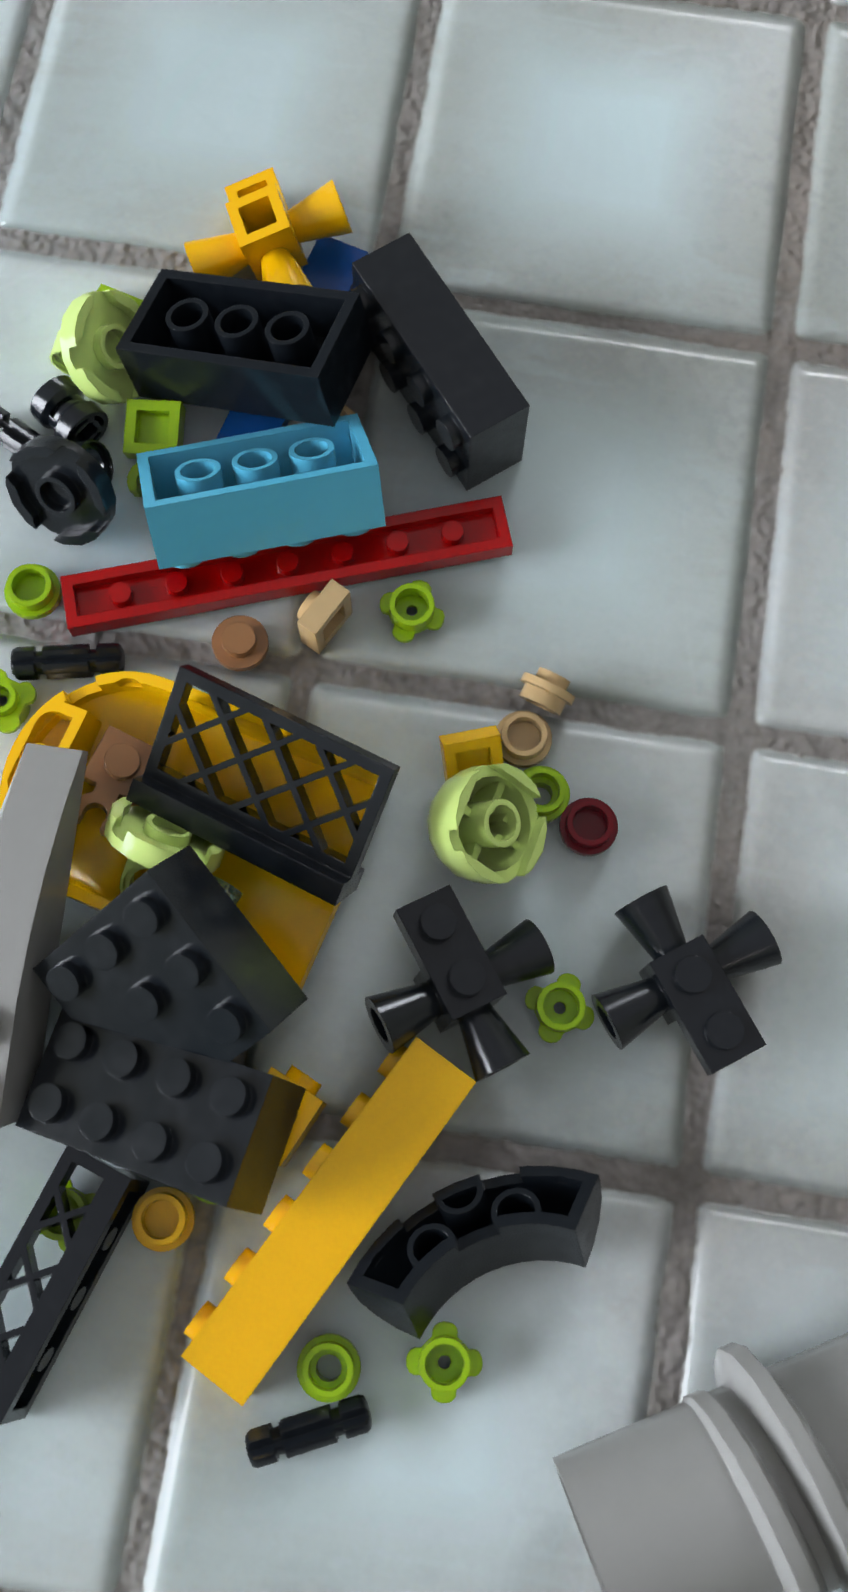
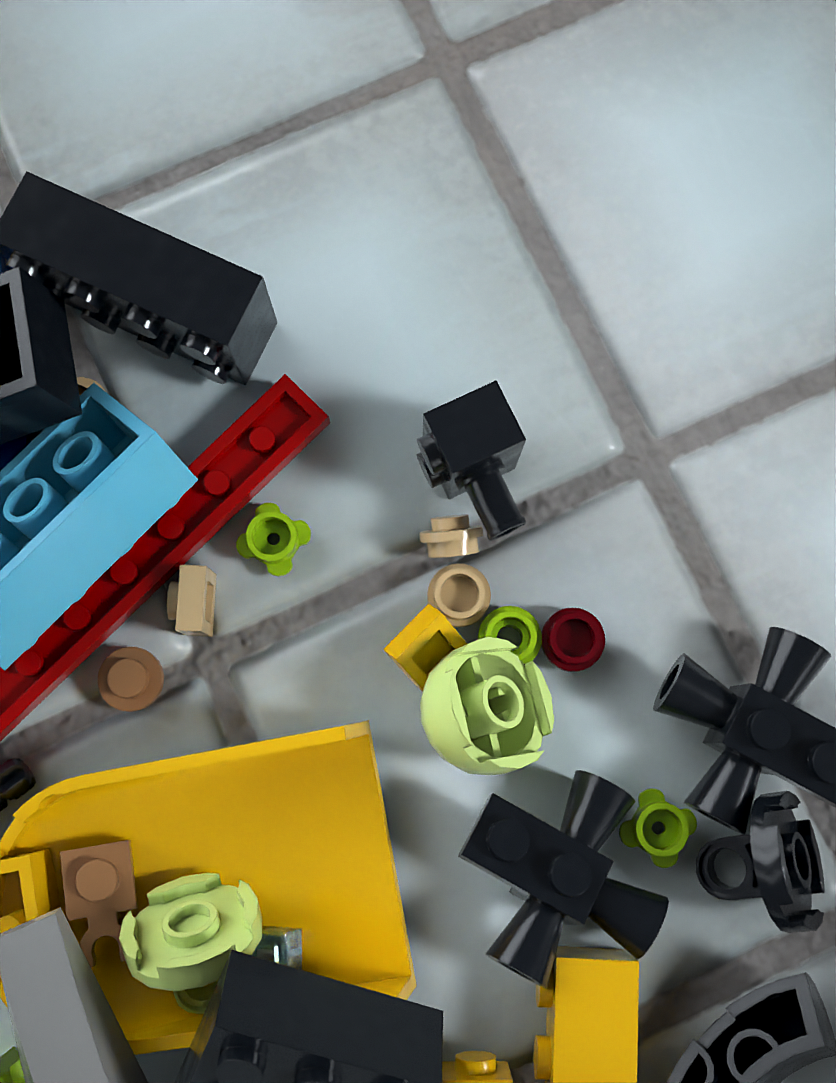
camera: 35 degrees left, 5 degrees up
(254, 833) = (264, 865): black fence -> none
(603, 635) = (469, 449): none -> black brick
(637, 1087) = (779, 863): none -> black tile

